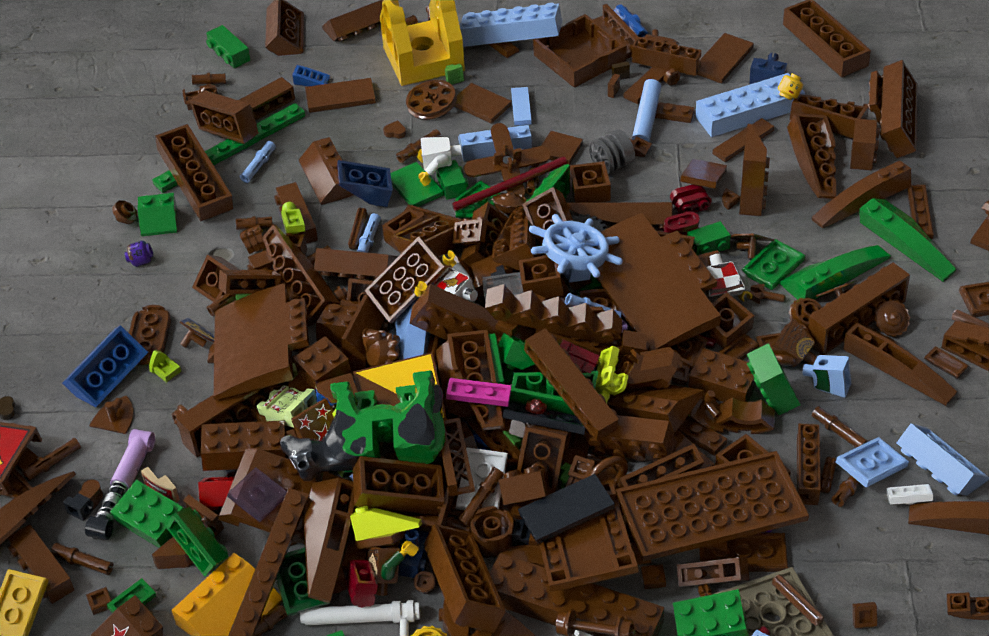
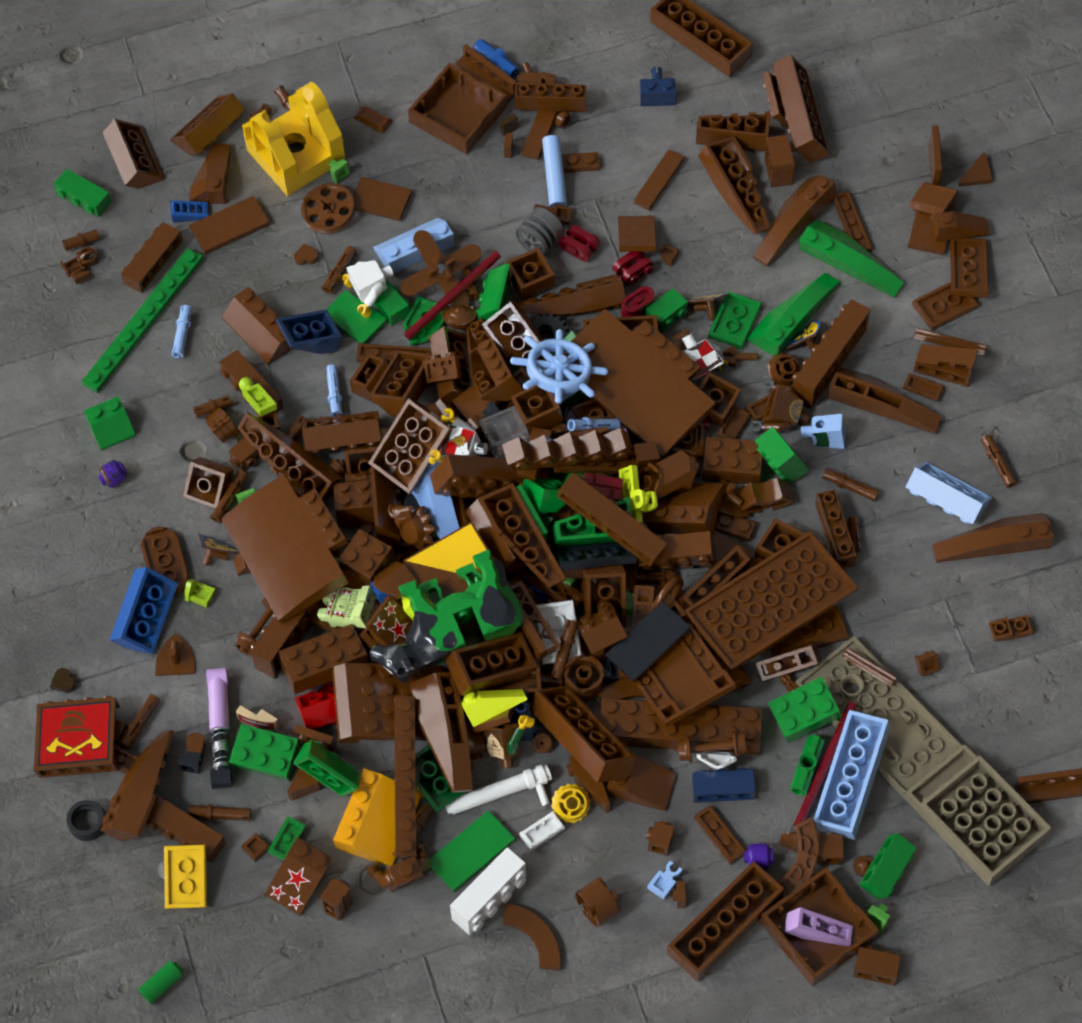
camera: 20 degrees left, 15 degrees up
(124, 212) = (74, 429): reddish brown plate -> none
(194, 172) = (127, 365): reddish brown brick -> none
(224, 116) = (128, 290): reddish brown brick -> none
(247, 281) = (245, 480): reddish brown brick -> none
(257, 494) = (368, 709): clear purple tile -> none
(344, 59) = (212, 177): none -> reddish brown wedge
(357, 228) = (319, 384): reddish brown axle -> none
(361, 583) = (491, 763): dark red brick -> none
(478, 392) = (533, 552): dark pink plate -> none
(511, 24) = (380, 96): light blue brick -> none
(521, 106) = (422, 192): light blue tile -> none
(536, 406) = (584, 548): clear red tile -> none
(562, 145) = (482, 233): reddish brown tile -> none
(647, 171) = (579, 243): none -> dark red brick
(724, 57) = (605, 79): reddish brown tile -> none
(742, 106) = (651, 137): light blue brick -> none
(754, 175) = (690, 229): reddish brown slope -> none
(790, 86) = (691, 113): yellow head -> none
(846, 490) = (876, 543): reddish brown pin -> none
(872, 462) = (889, 511): light blue tile -> none
(892, 318) = (863, 355): reddish brown piece -> none
(909, 494) = (930, 535): white plate -> none

